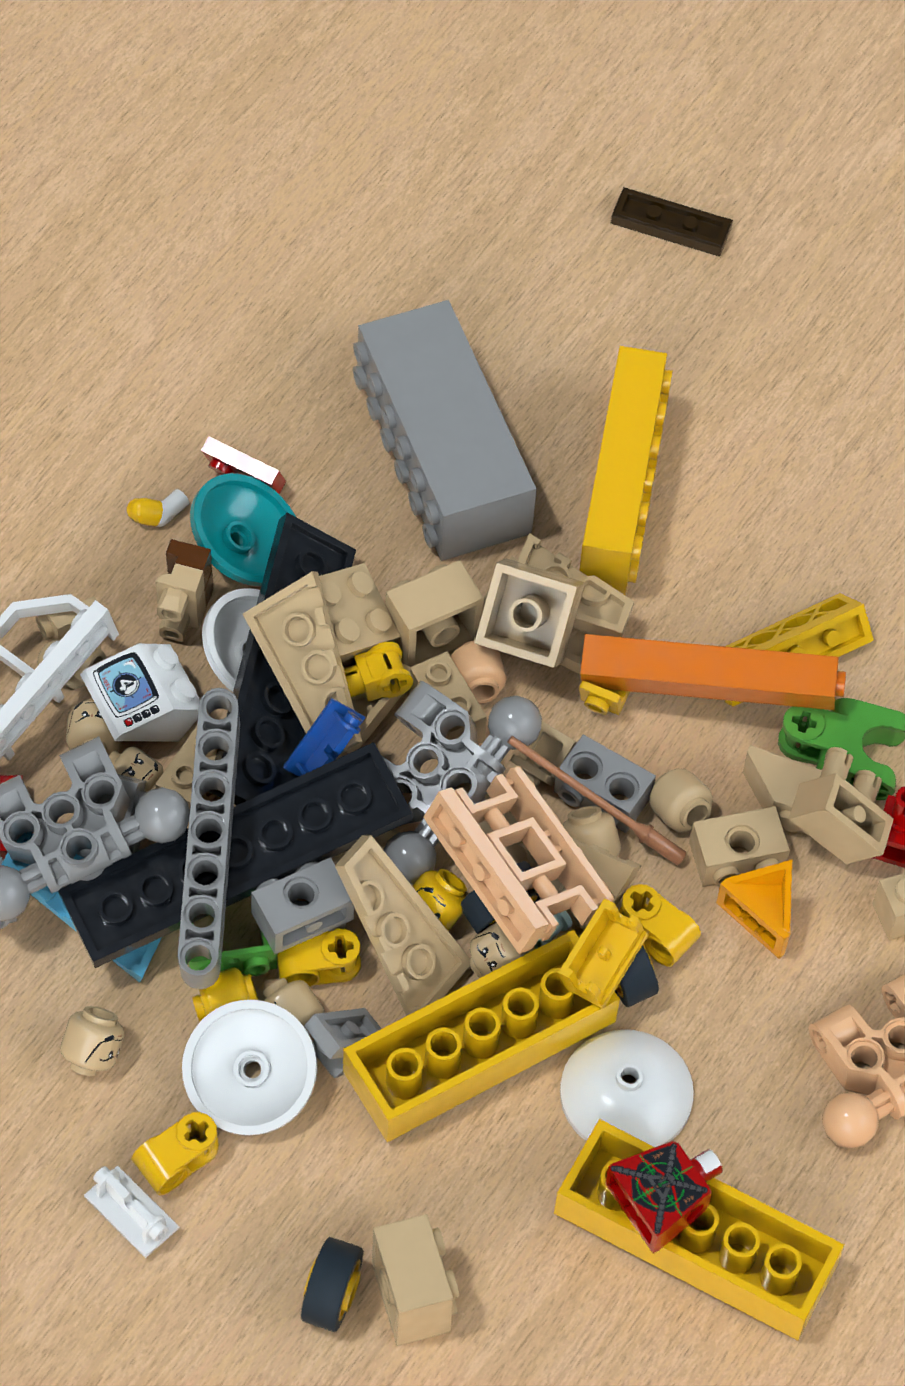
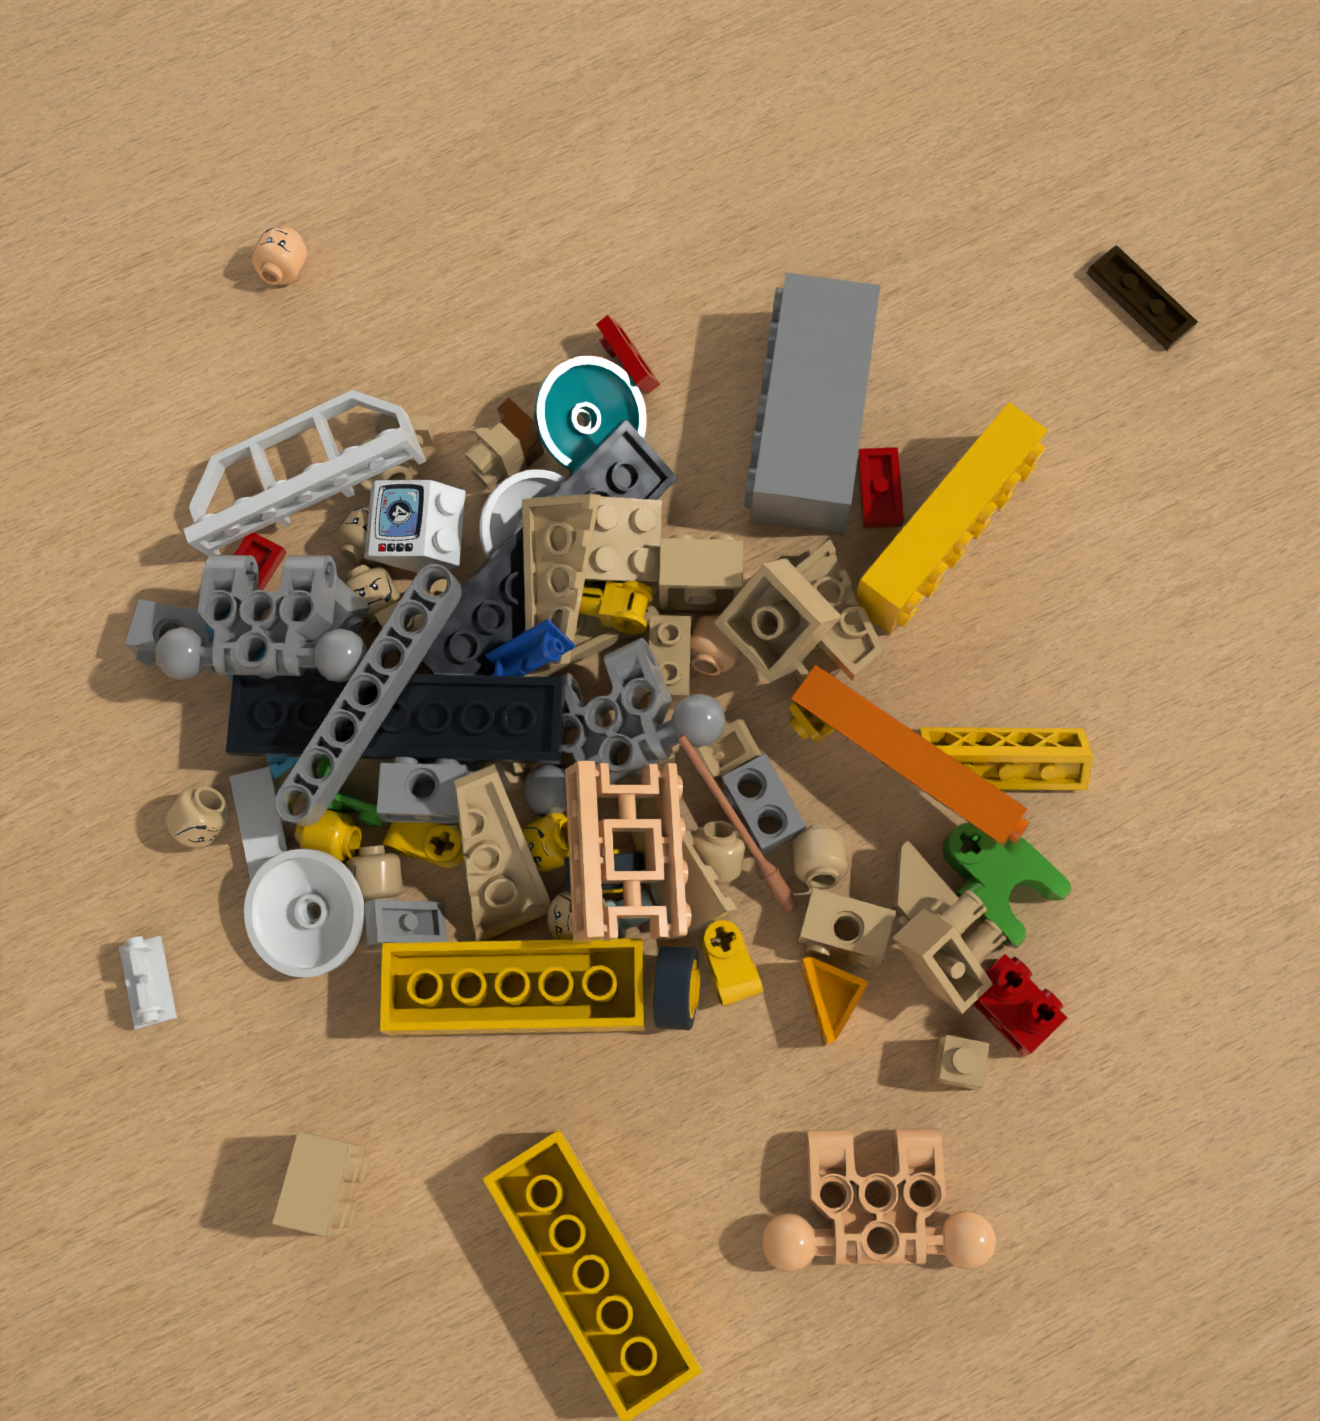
camera: 35 degrees right, 15 degrees up
(148, 1022) = (259, 824): none -> white tile
(157, 512) = (534, 361): arm -> none
(172, 1157) = (204, 953): yellow piece -> none
(332, 1284) = (255, 1147): black wheel -> none
(553, 485) = (880, 487): none -> red plate
(603, 954) = (644, 984): yellow hinge -> none
(649, 1109) = (624, 1132): white dish -> none
(663, 1190) = (566, 1238): torso -> none

